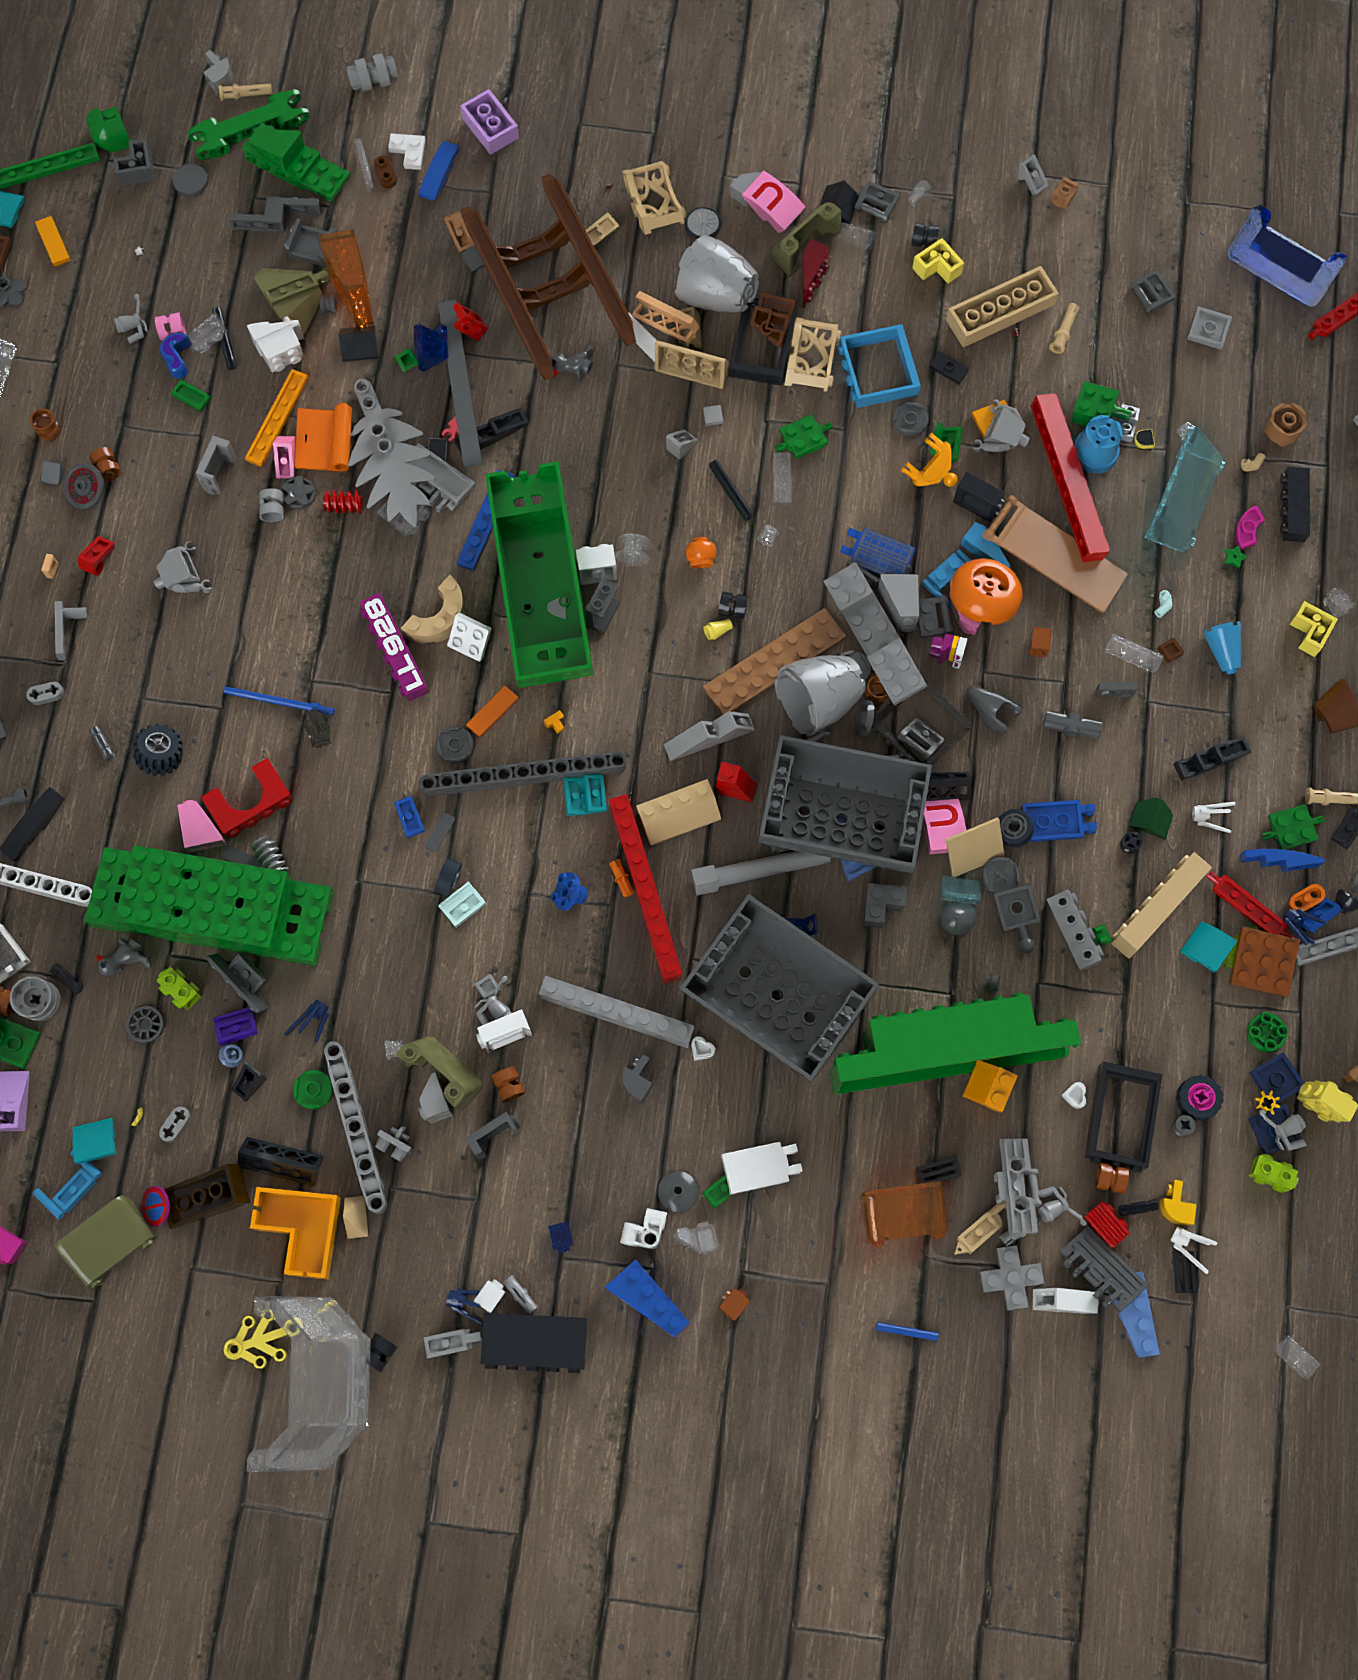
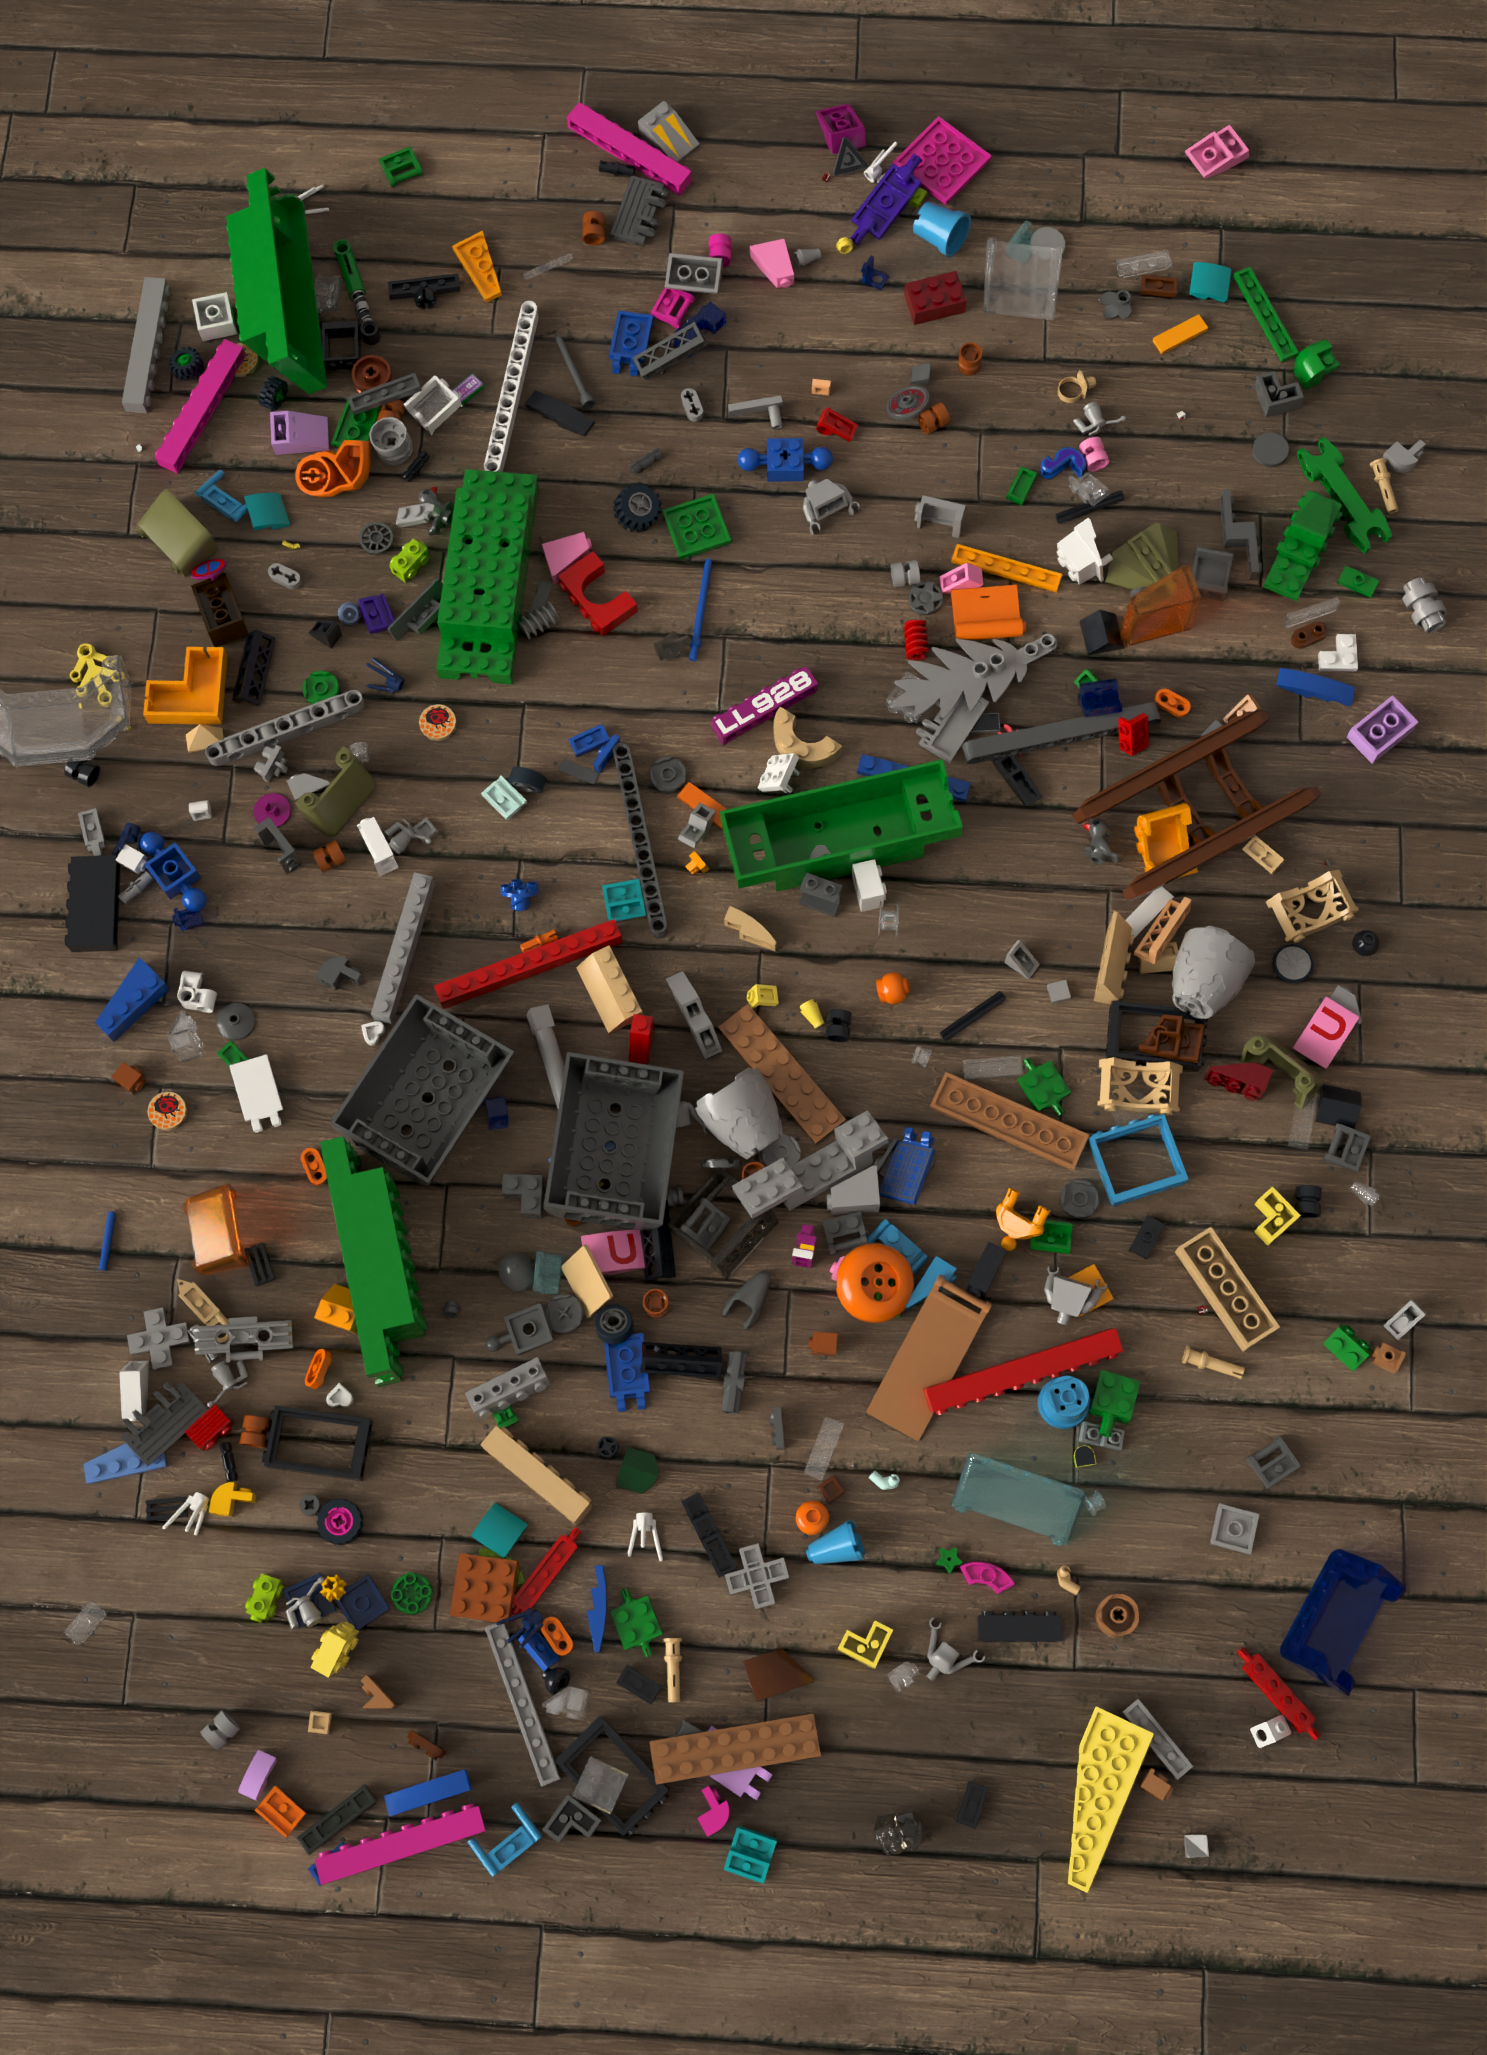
camera: 90 degrees right, 0 degrees up
(62, 1060) = (334, 472): none -> orange piece
(89, 328) = (1087, 383): none -> tan piece
(126, 605) = (785, 459): none -> blue brick
(127, 976) = (416, 514): none -> light grey hinge
(186, 697) = (696, 526): none -> green plate
(337, 126) = (1358, 581): none -> green plate
(368, 968) = (437, 722): none -> tile
(426, 800) = (605, 754): none -> blue plate
(437, 290) = (1173, 702): none -> orange plate
(438, 1222) = (200, 810): none -> white brick
(446, 1146) = (274, 807): none -> magenta piece
(474, 1273) = (178, 880): none -> blue brick
(515, 717) = (698, 825): none -> light grey brick
(578, 309) = (1163, 835): none -> light orange cylinder
(627, 678) = (749, 929): none -> tan slope
(688, 164) = (1365, 943): none -> black brick
(696, 672) = (762, 995): none -> light yellow bracket
(771, 1265) = (167, 1111): none -> tile
(835, 468) = (1009, 1121): none -> medium nougat plate
(841, 1112) = (315, 1167): none -> orange plate
(996, 788) = (656, 1303): none -> dark orange wheel
(1048, 1114) = (318, 1368): none -> orange plate
(1054, 222) = (1348, 1346): none -> green bracket
(1057, 765) = (681, 1363): none -> black fence
(1200, 665) = (812, 1517): none -> orange piece
(1250, 718) = (757, 1576): none -> light grey plate
(1321, 566) = (945, 1656): none -> light grey piece

